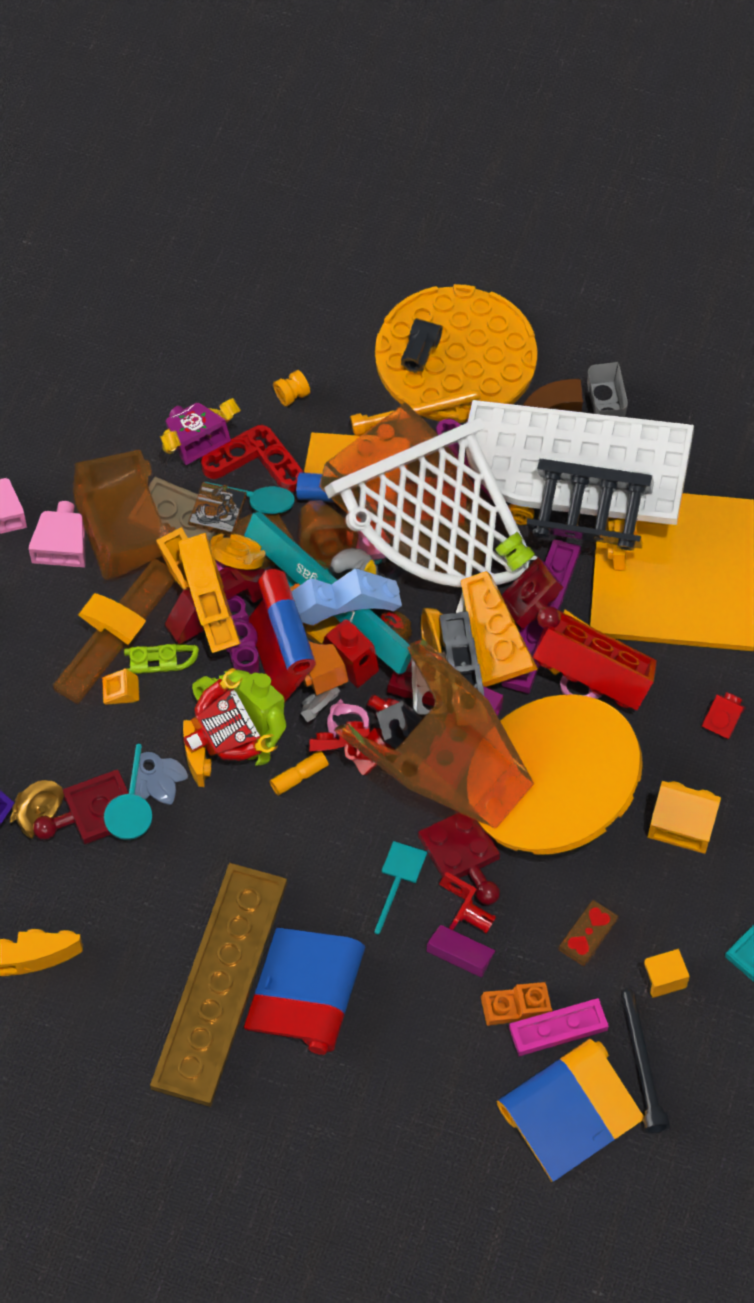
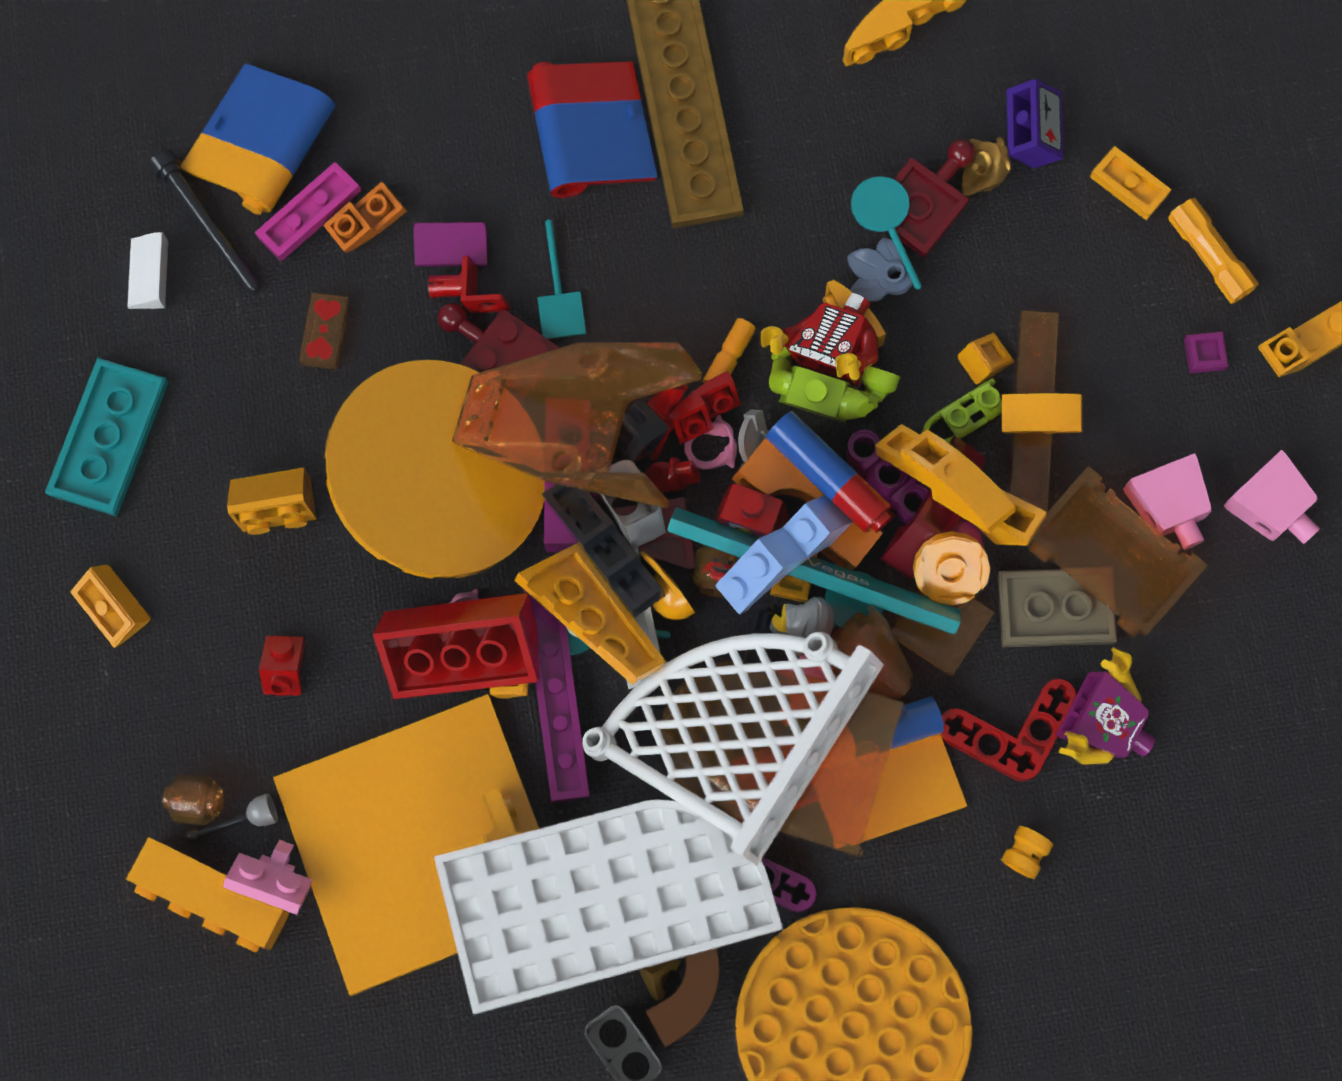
camera: 155 degrees right, 15 degrees up
(217, 508) = (1014, 631): piece -> none
(269, 499) = (962, 679): teal piece -> none
(363, 423) = (910, 846): light orange piece -> none
(422, 339) = (900, 1009): black piece -> none
(519, 556) = (616, 731): lime wheel -> none
(531, 594) = (571, 685): dark red plate -> none
(580, 477) = (540, 862): black fence -> none
(666, 973) = (216, 317): light orange panel -> none
(706, 1043) = (148, 271): none -> white slope

